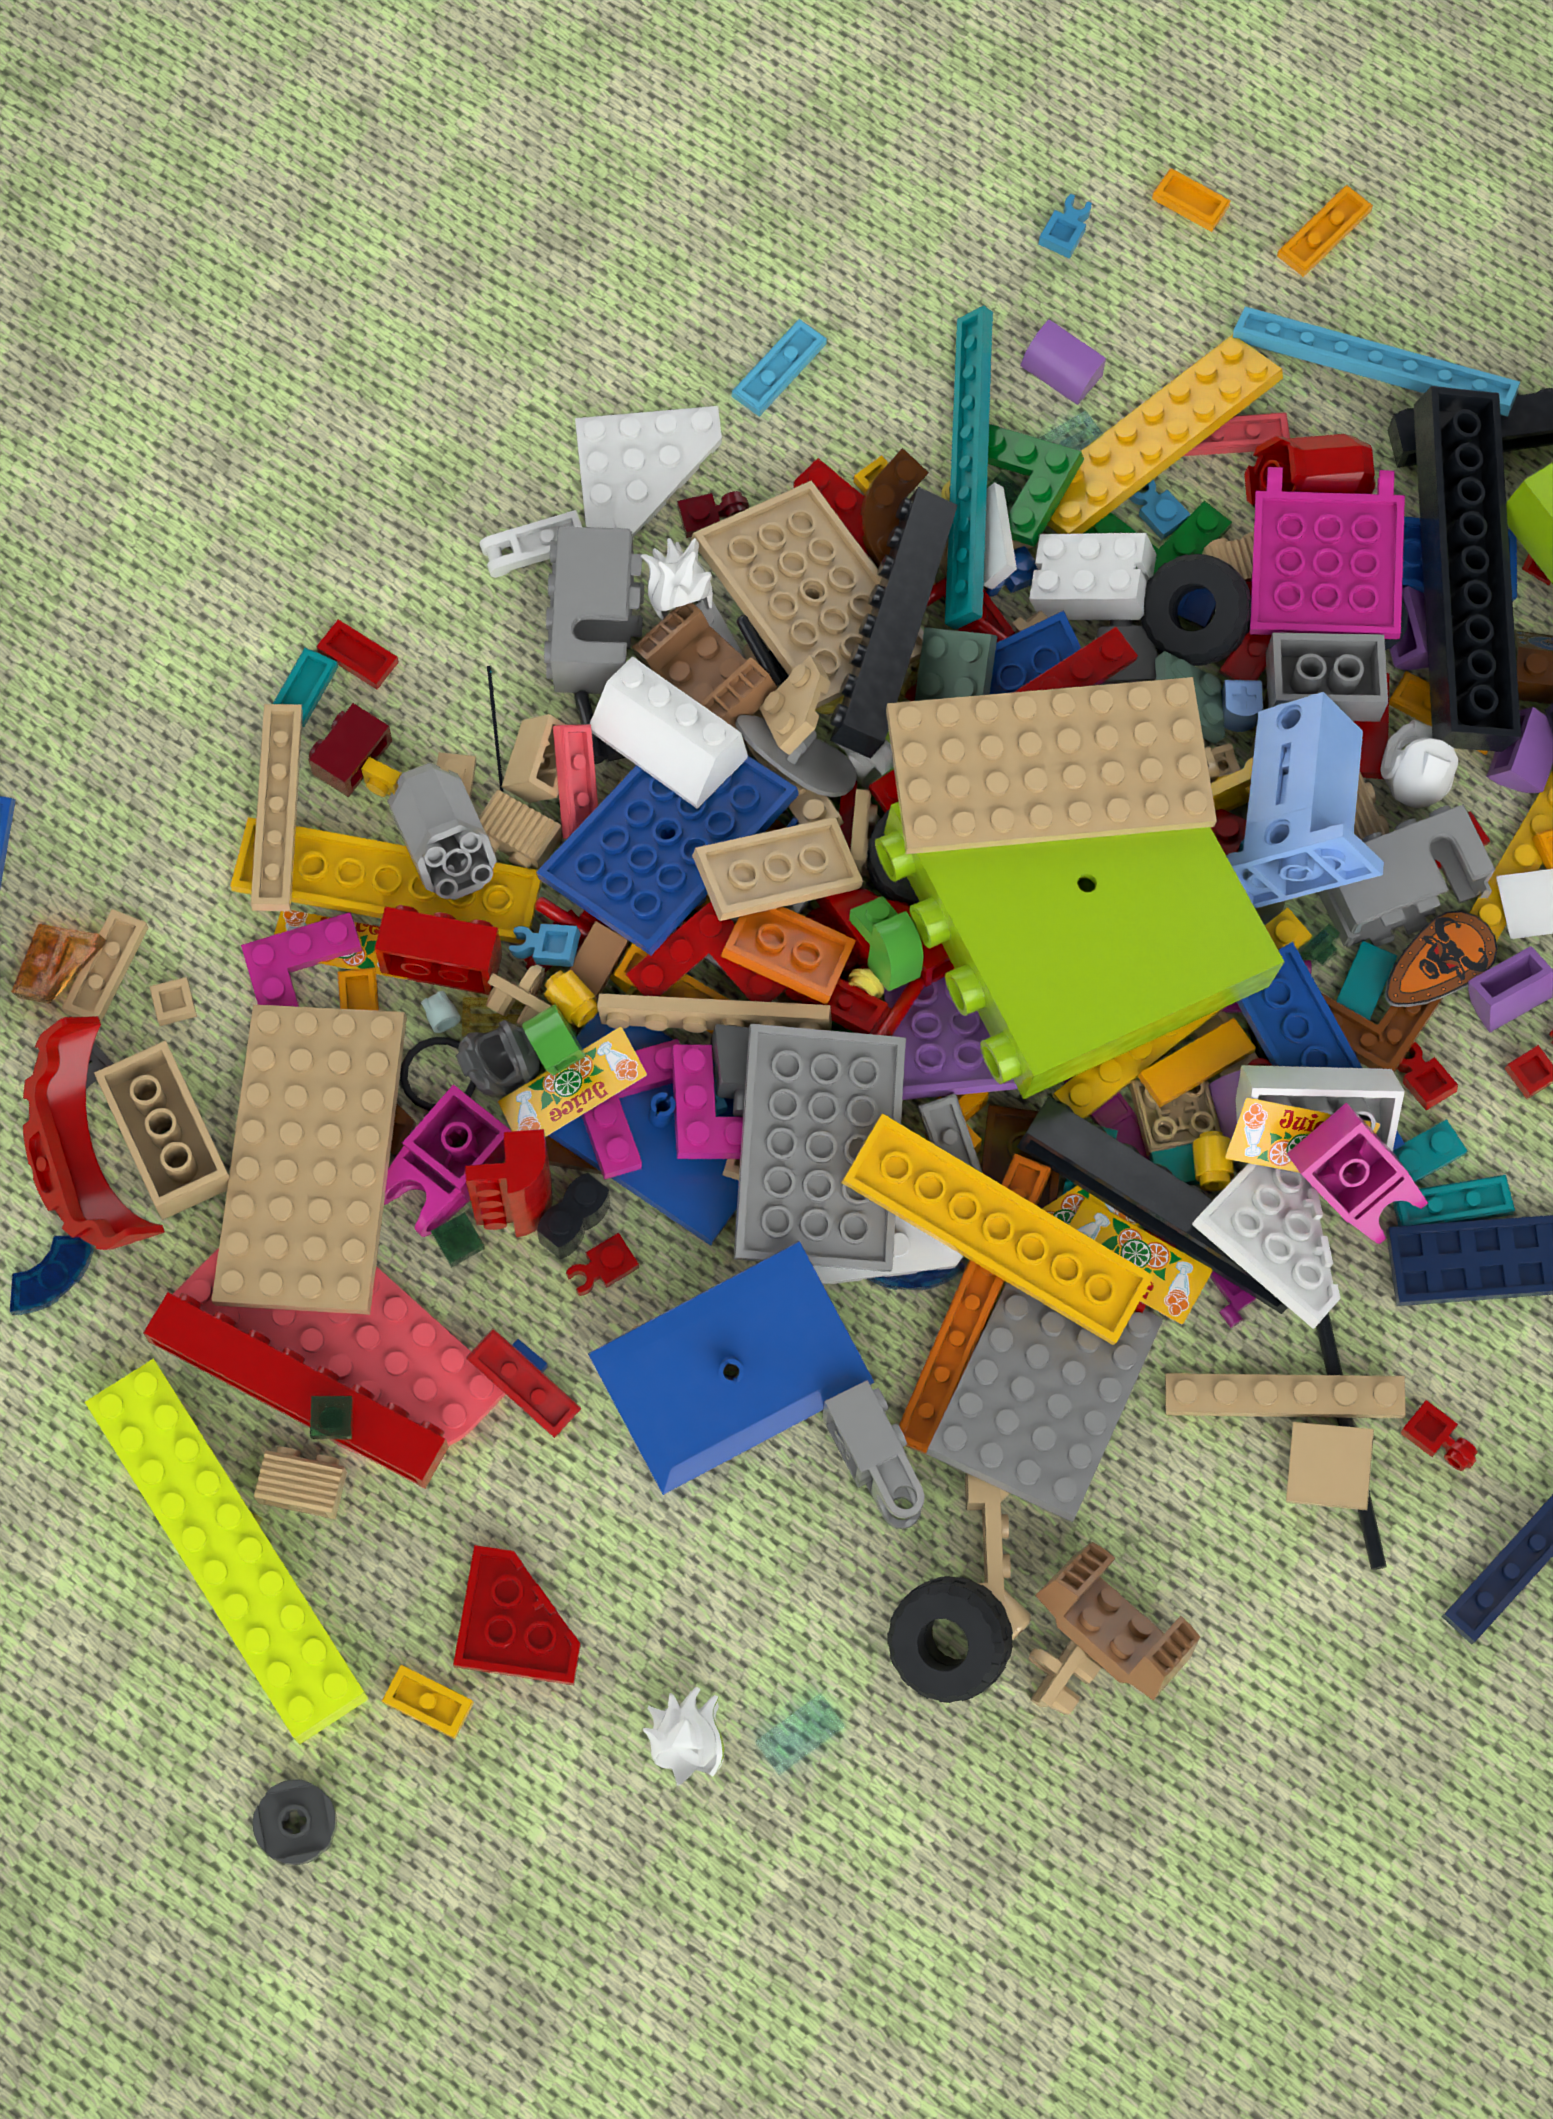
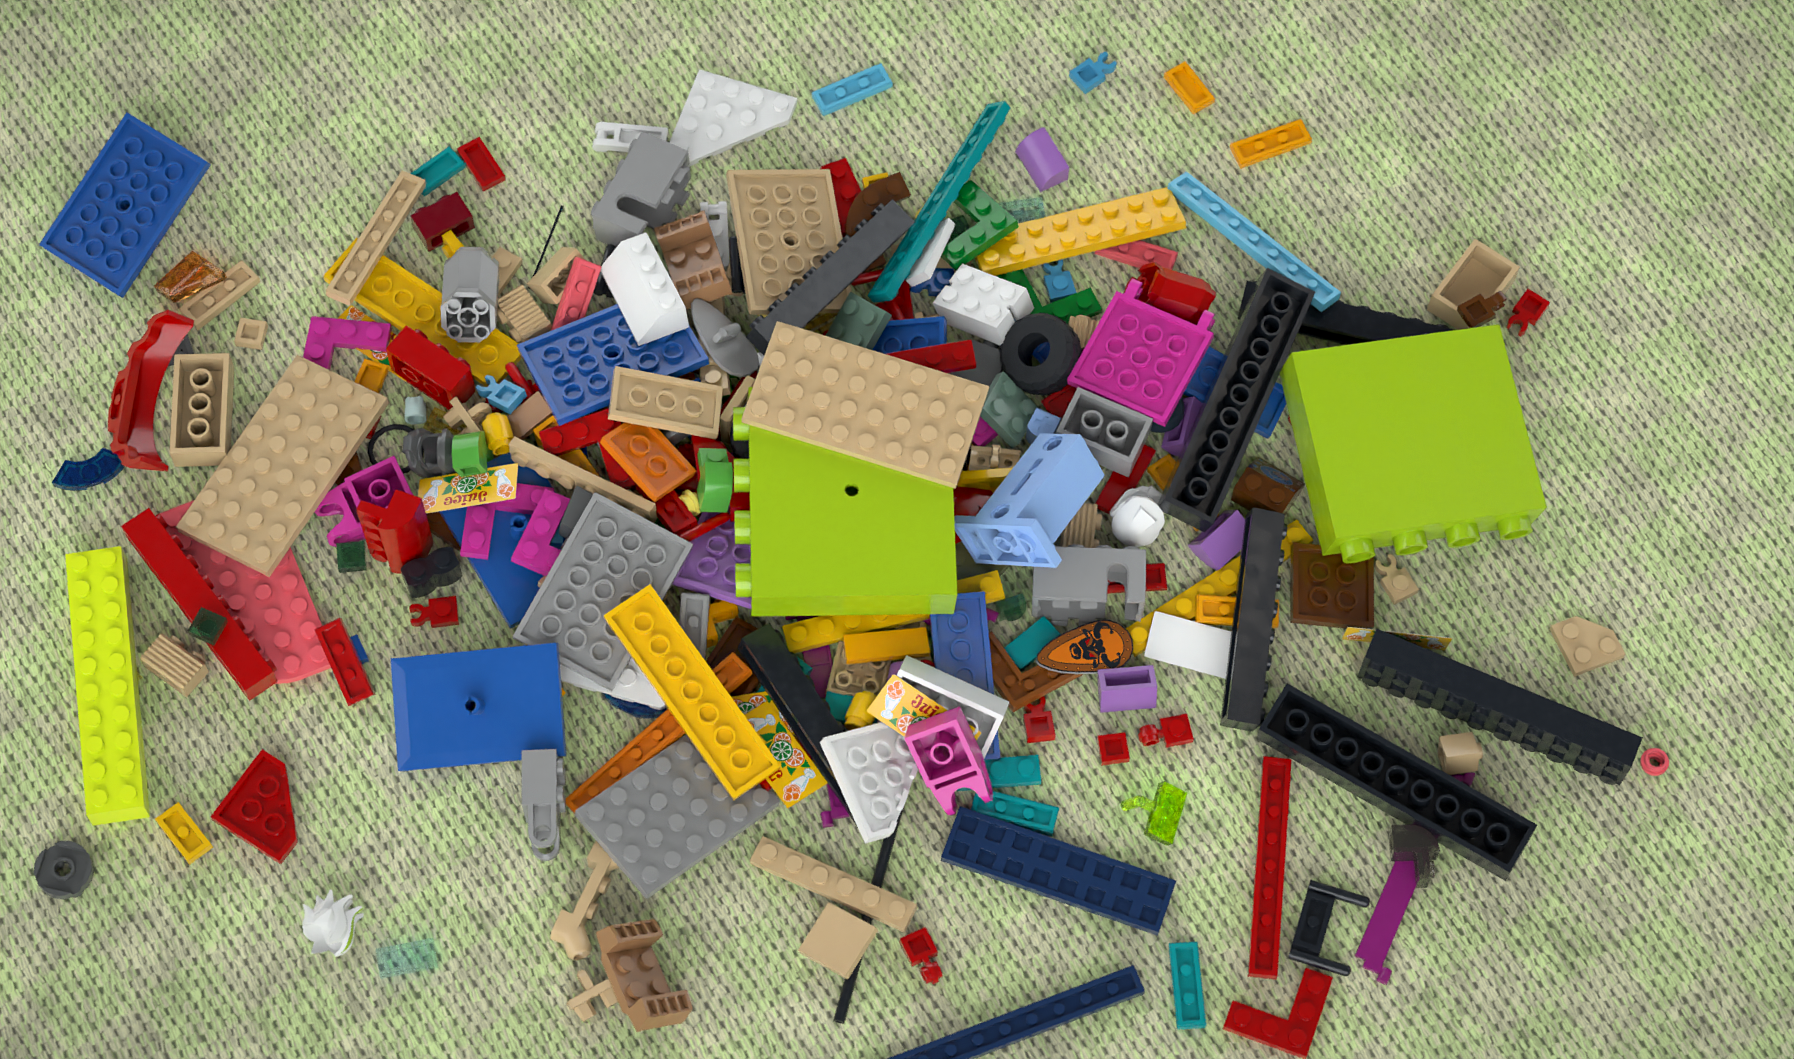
camera: 25 degrees right, 5 degrees down
(677, 578) = (704, 194): white hair -> none
(702, 511) = (754, 161): dark red plate -> none
(792, 705) = (729, 305): tan plate -> none
(917, 1655) = (549, 942): black tyre -> none

